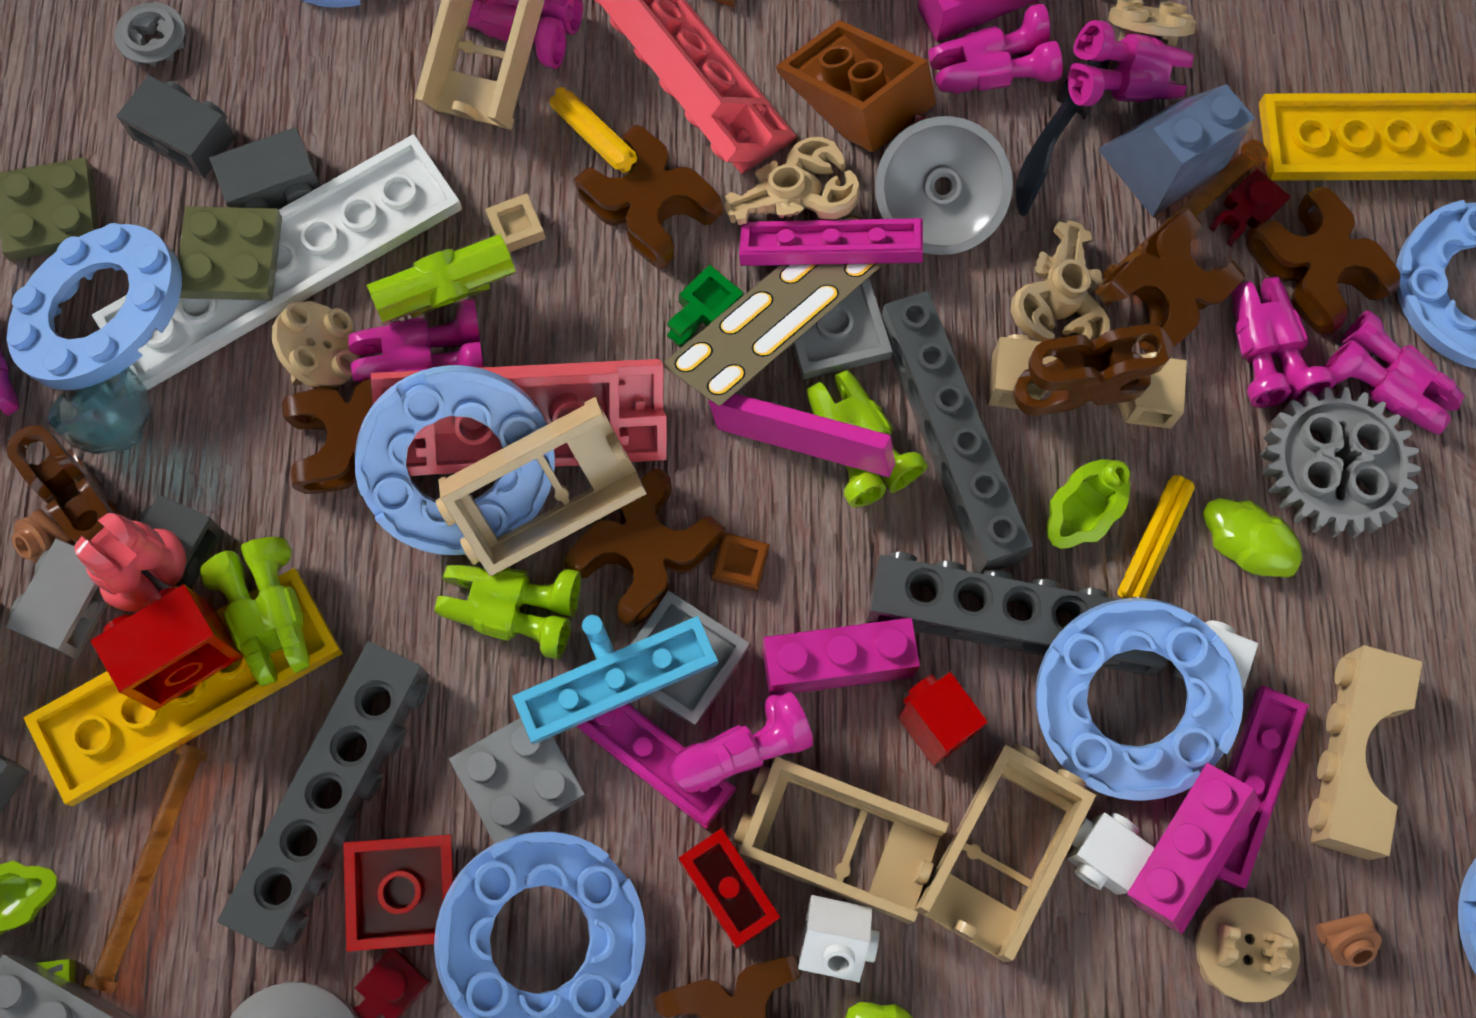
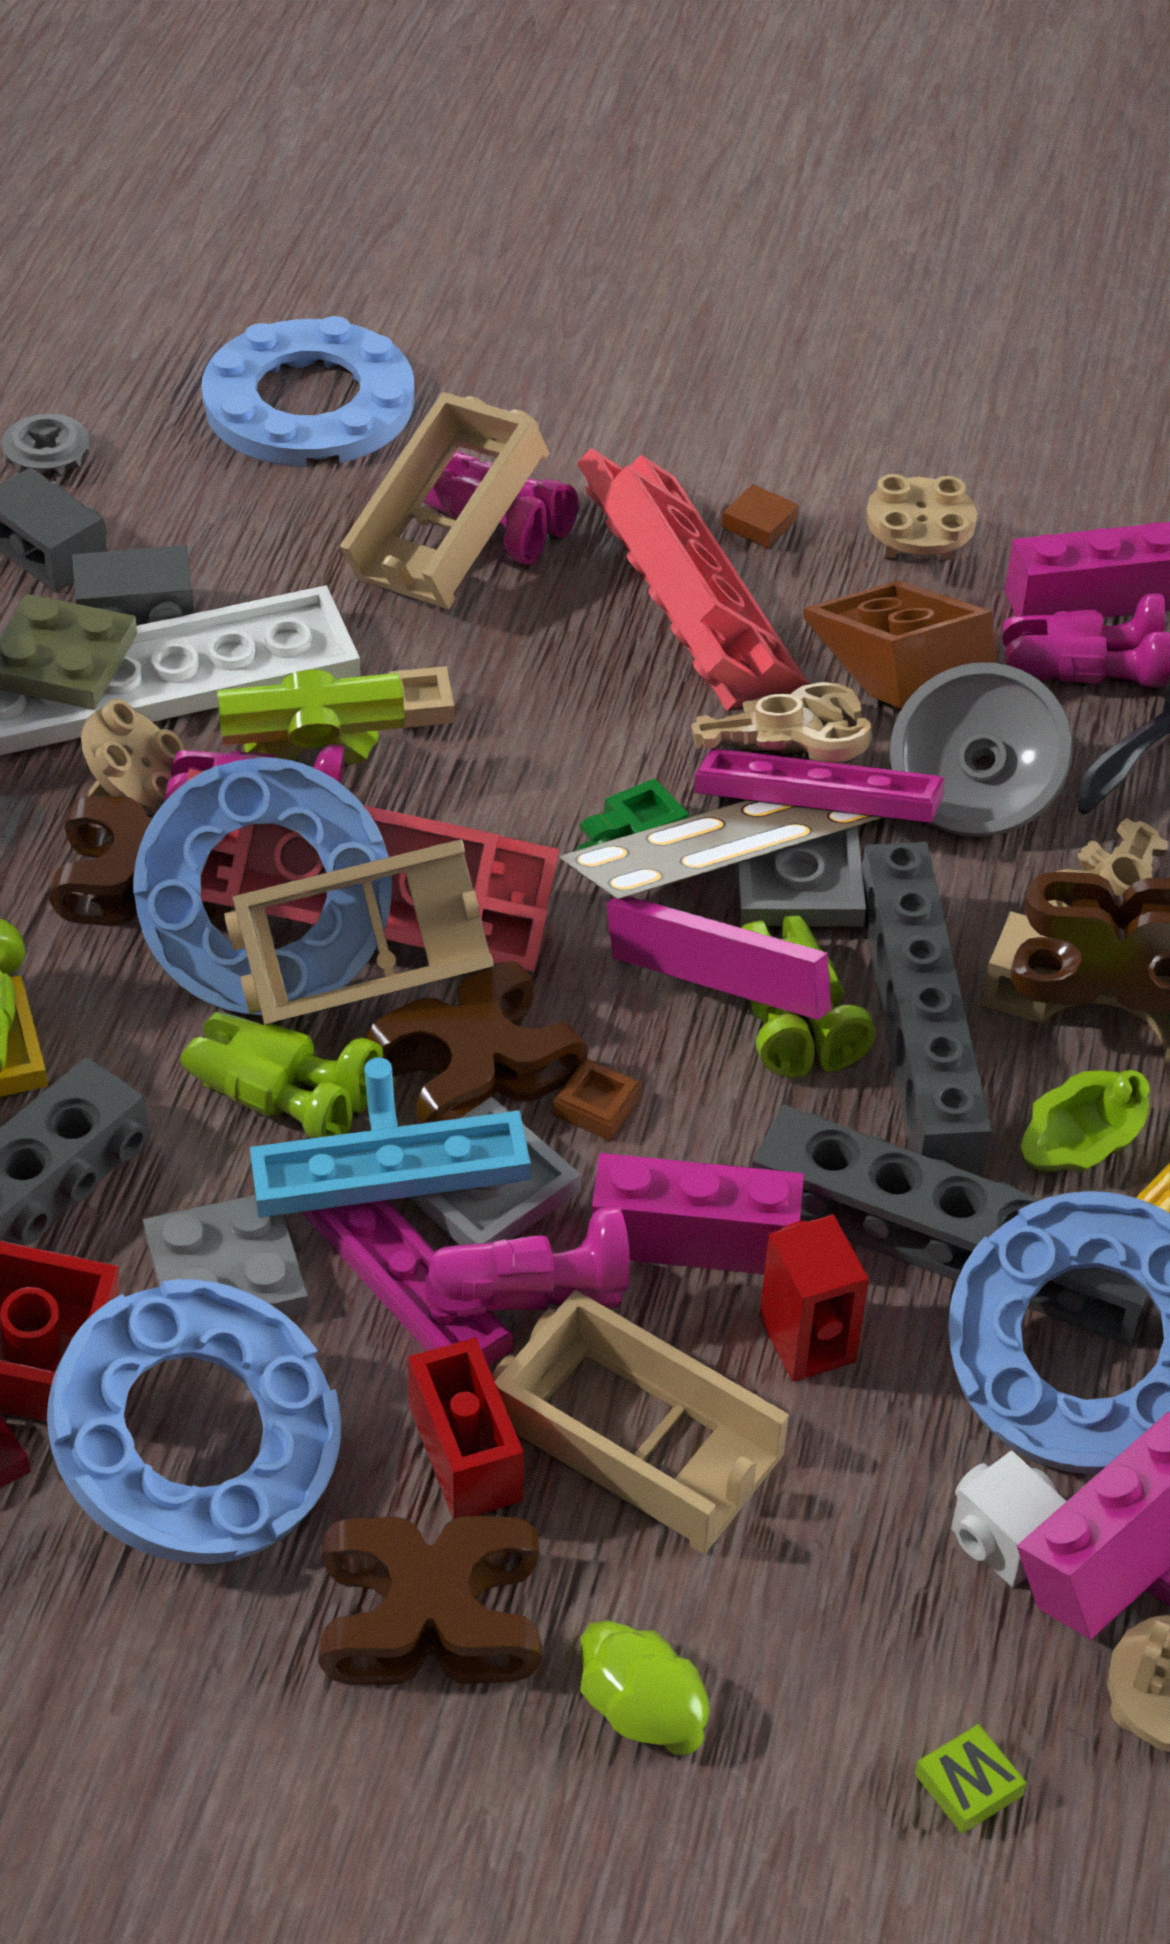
camera: 15 degrees right, 25 degrees down
(593, 130) = (549, 618): yellow axle -> none
(648, 197) = (598, 700): reddish brown piece -> none
(837, 939) = (595, 1521): white brick -> none
(974, 913) = (796, 1556): tan door -> none

